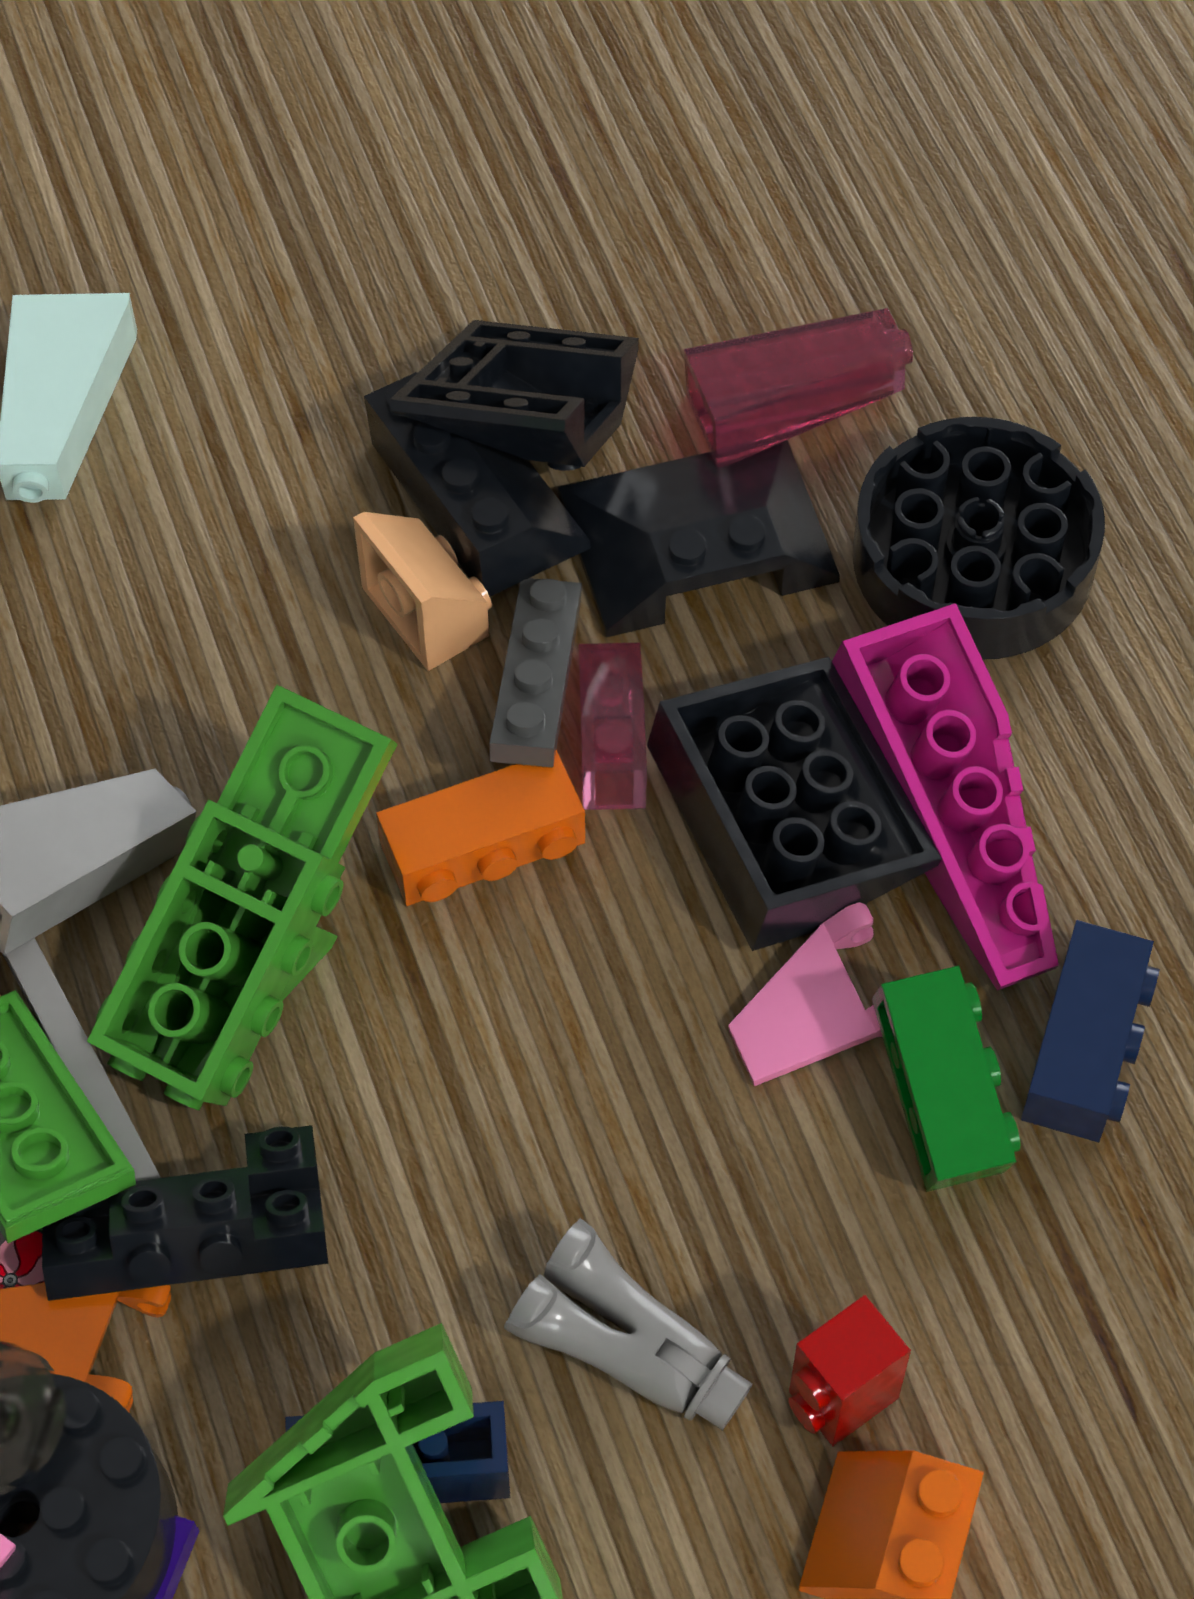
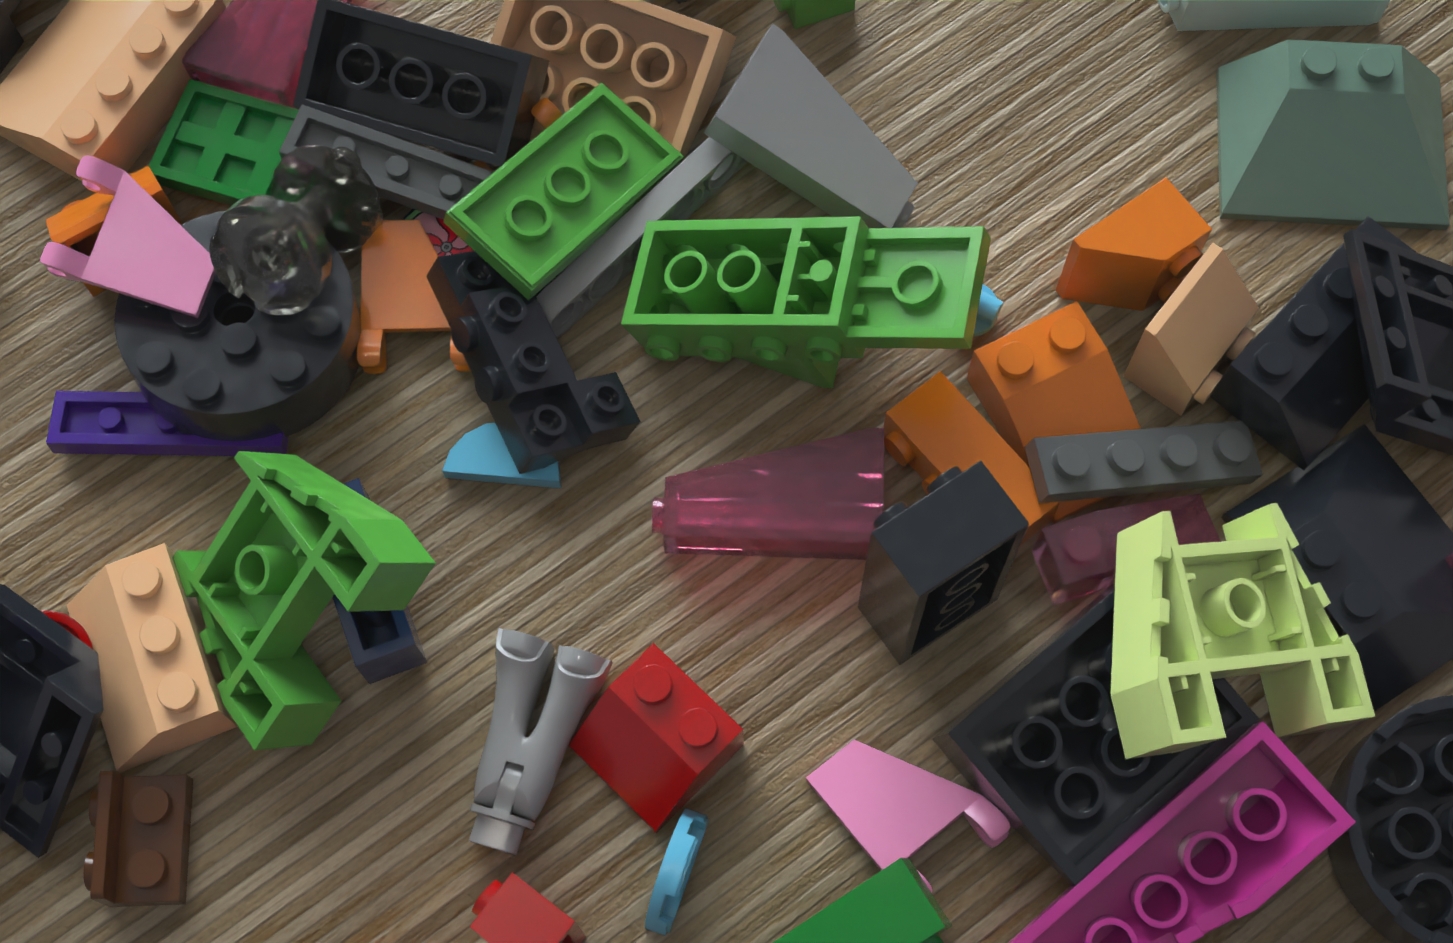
camera: 75 degrees right, 10 degrees up
(249, 412) = (1332, 136): none -> sand green slope
(288, 1297) = (485, 457): none -> medium azure tile
(320, 595) = (1136, 252): none -> orange slope
(436, 714) = (1051, 383): none -> orange slope
(460, 1005) = (779, 503): none -> clear pink slope
(602, 854) = (939, 559): none -> black brick
(672, 1203) = (656, 737): none -> red slope
(731, 646) = (1217, 615): none -> yellowish green wedge
(815, 1226) = (675, 871): none -> medium azure tile

